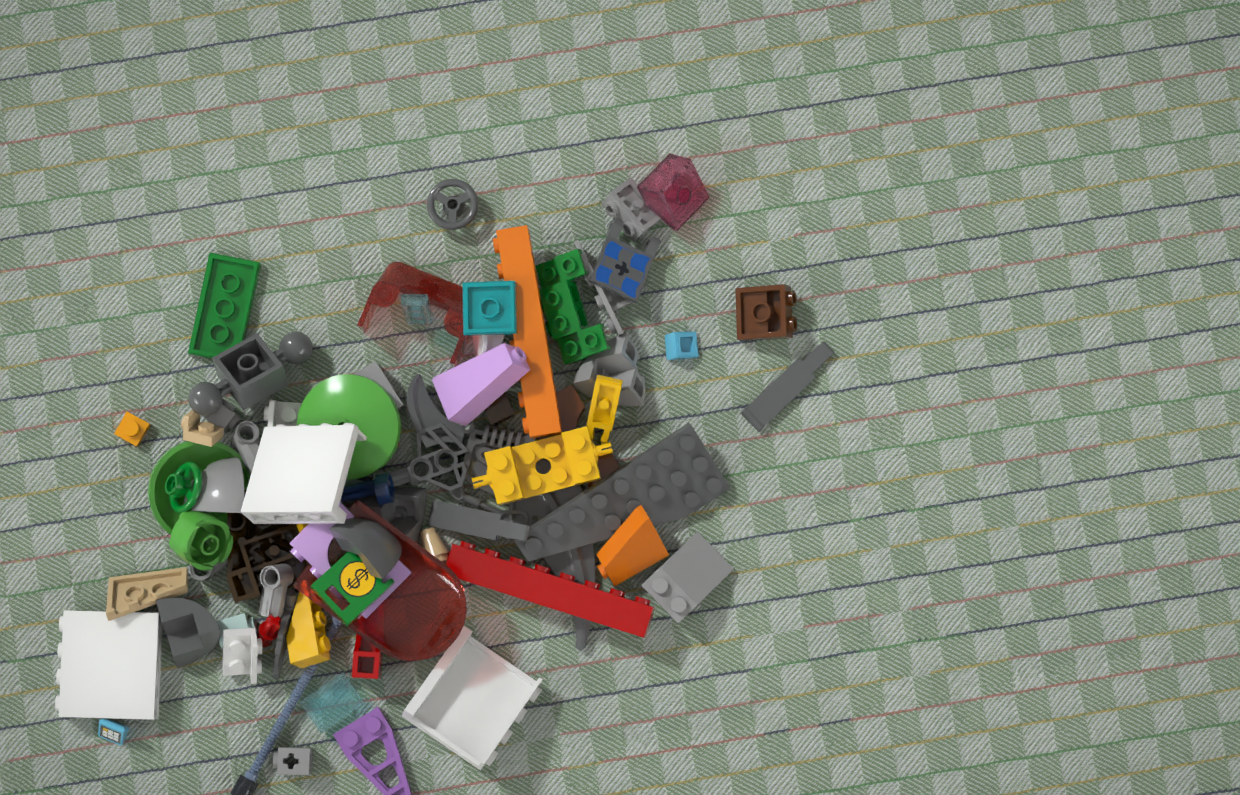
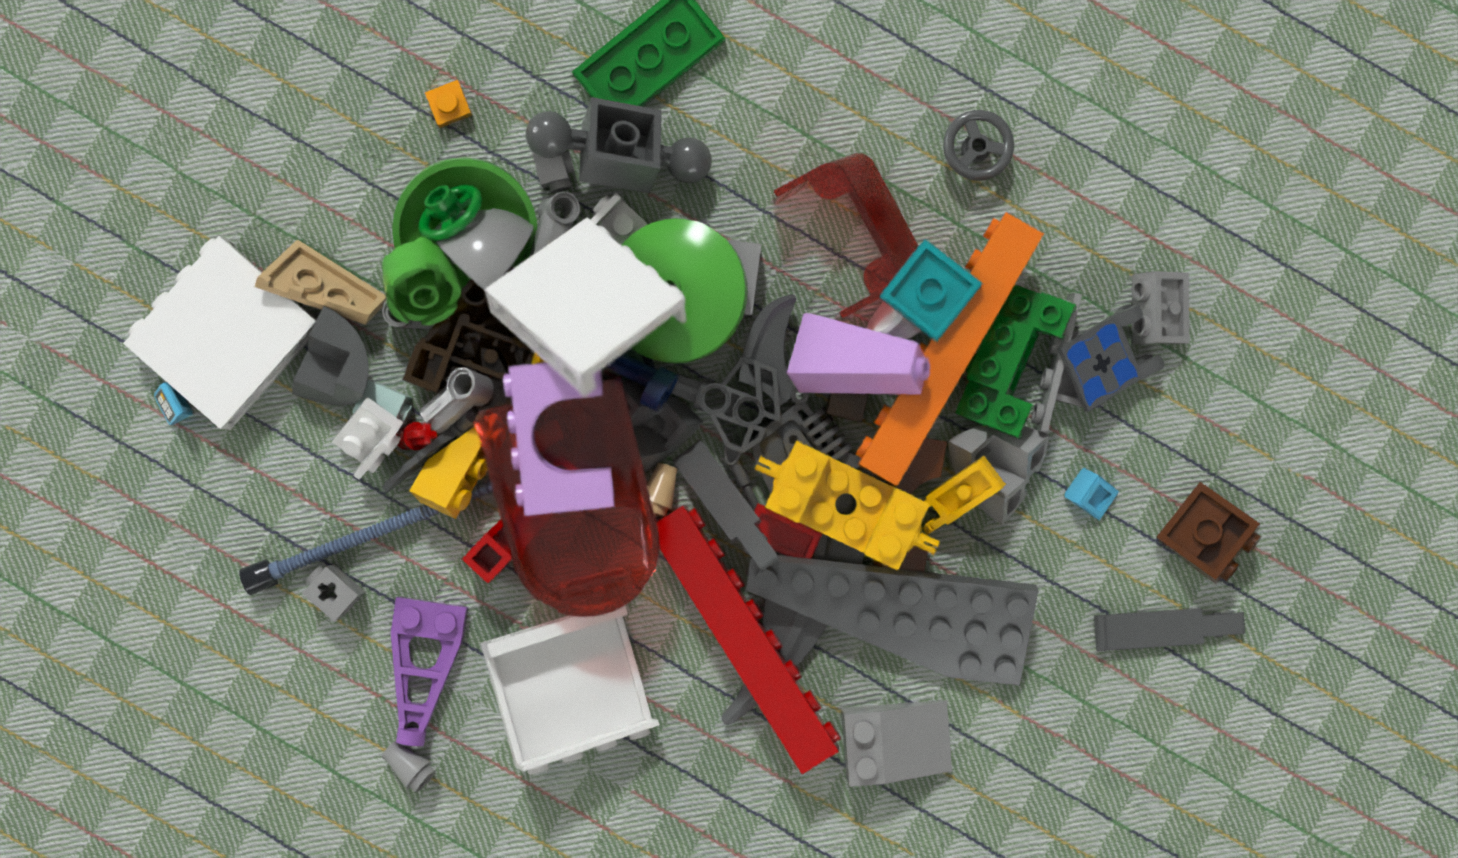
camera: 40 degrees right, 5 degrees up
(200, 432) = (514, 167): tan bracket -> none
(332, 702) = (422, 564): clear light blue plate -> none
(354, 583) = (546, 468): green container -> none
(371, 541) = (597, 441): dark grey brick -> none
(417, 309) = (851, 226): clear light blue tile -> none
(525, 511) = (787, 535): none -> red tile
(631, 548) = (865, 665): orange slope -> none
(674, 190) = (1224, 325): clear pink slope -> none

